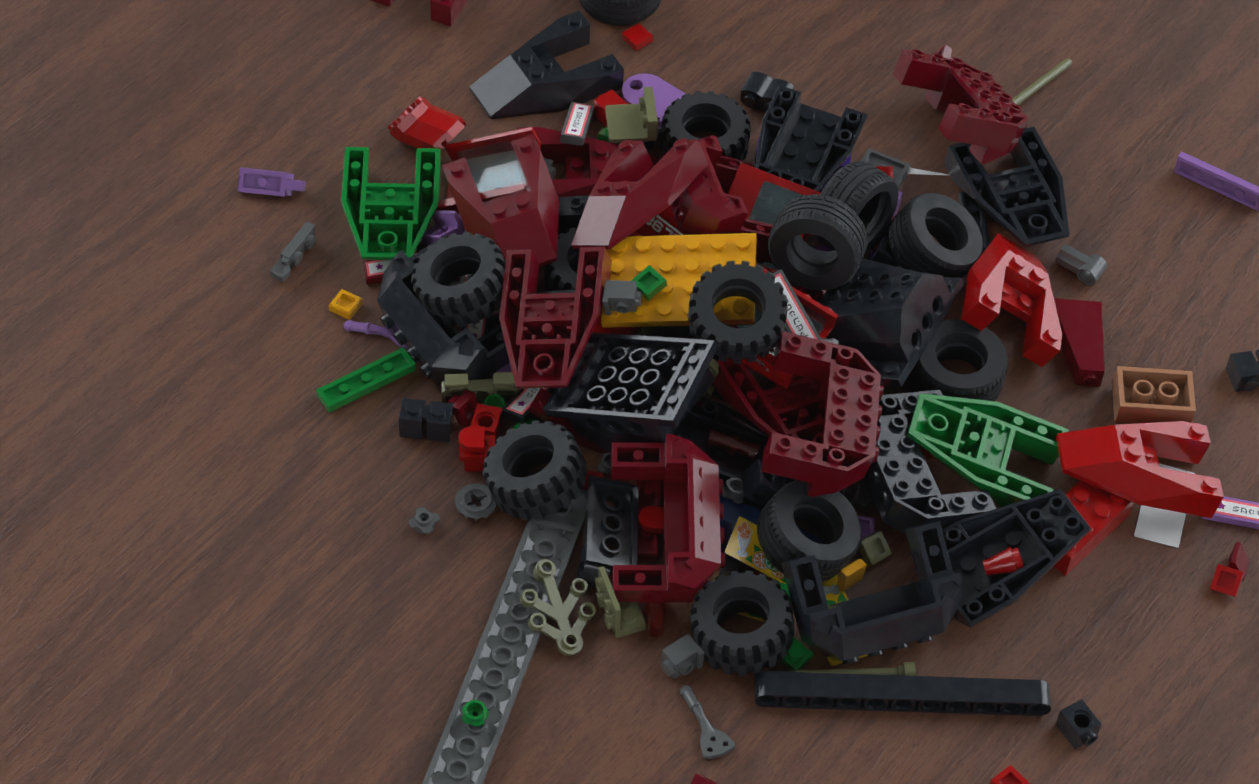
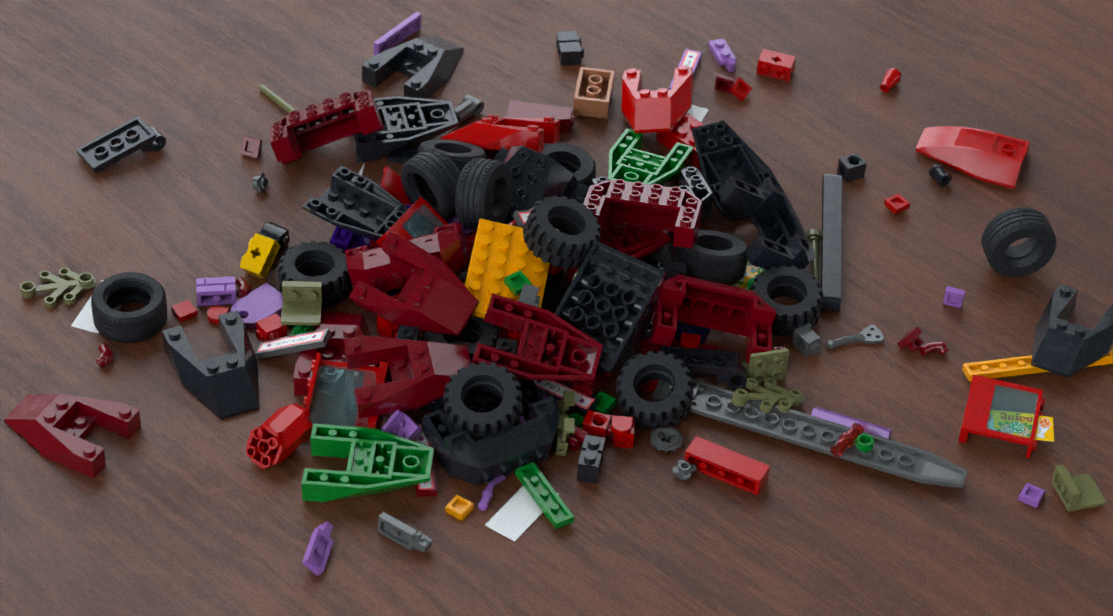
camera: 85 degrees left, 10 degrees down
(337, 358) = (515, 515): none -> white sticker
(431, 563) = (727, 465): none -> red brick
(478, 691) = (846, 439): none -> clear red pin
(526, 709) = (849, 421): none -> medium lavender tile
(635, 64) = (213, 312): none -> red tile
(670, 56) = (215, 291): none -> medium lavender brick
(683, 83) = (244, 287): none -> dark red arm
(730, 79) = (267, 251): none -> yellow brick
(877, 71) = (260, 183): none -> dark grey plate
(1004, 562) = (740, 168): red cone -> none
(1173, 216) = (424, 59): none -> black wedge

